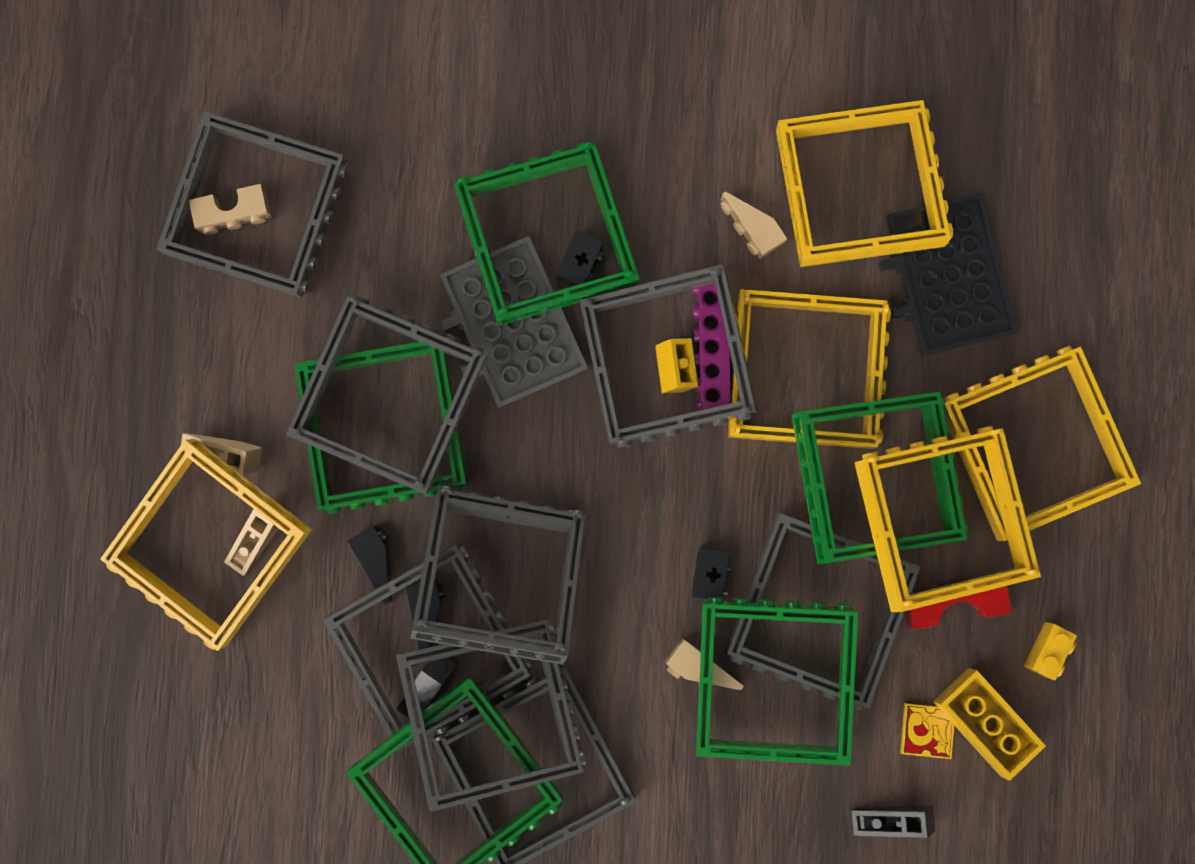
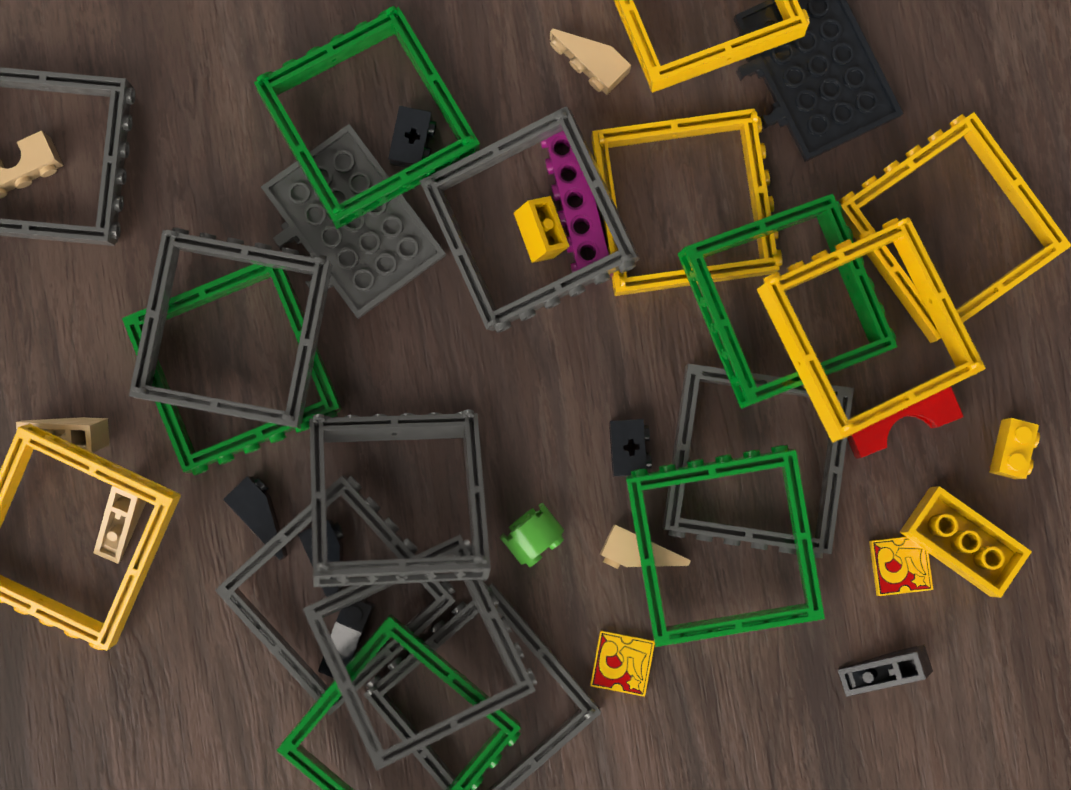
camera: 15 degrees left, 0 degrees up
(610, 632) = (533, 535): none -> bright green brick
(663, 762) = (622, 663): none -> tile

